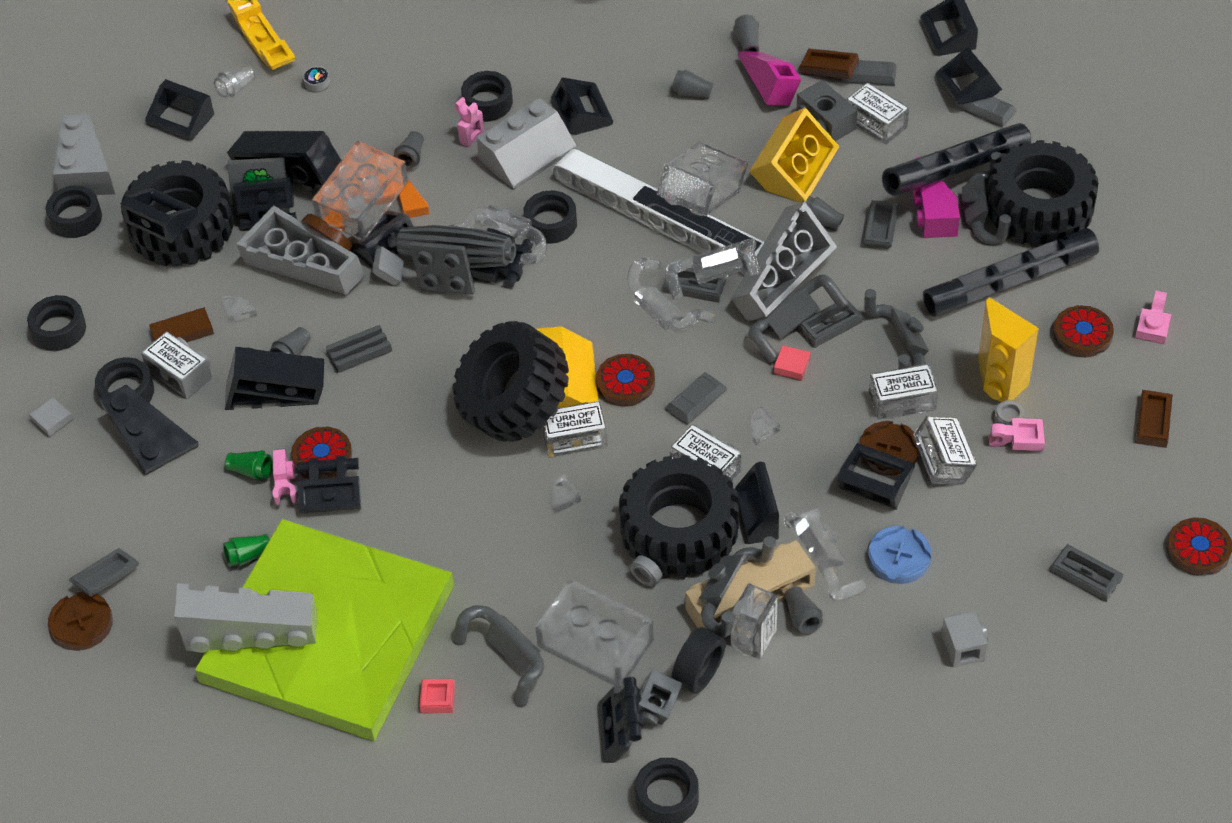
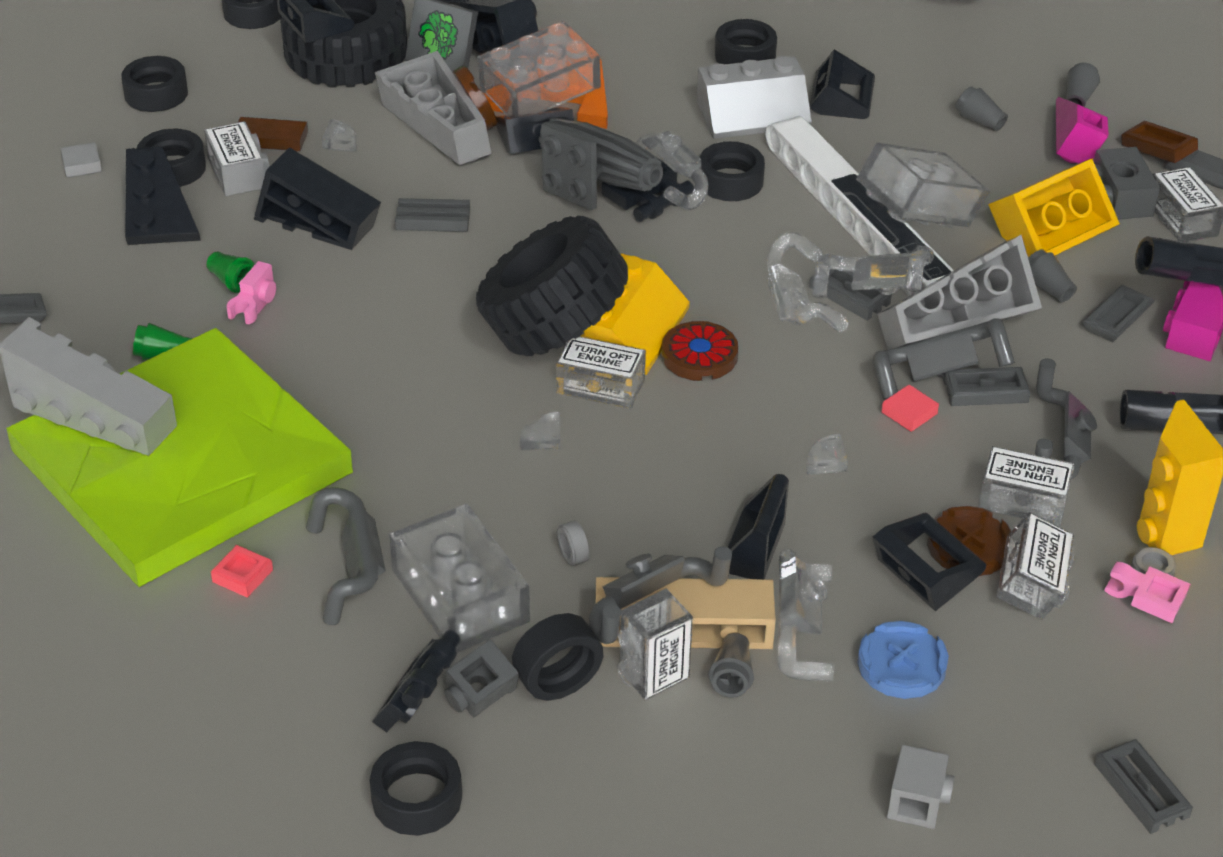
camera: 25 degrees right, 10 degrees down
(261, 196) = (451, 43): black plate -> none
(292, 343) = (368, 181): dark grey cone -> none
(322, 444) = (315, 292): tile -> none
(328, 493) = (289, 328): black plate -> none
(388, 266) = (520, 152): light grey tile -> none
(410, 149) = (623, 65): dark grey cone -> none
(471, 122) = (707, 54): bright pink plate -> none
(673, 483) = (656, 462): black tyre -> none
(696, 398) = (768, 399): dark grey tile -> none
(702, 444) = (731, 458): brick -> none

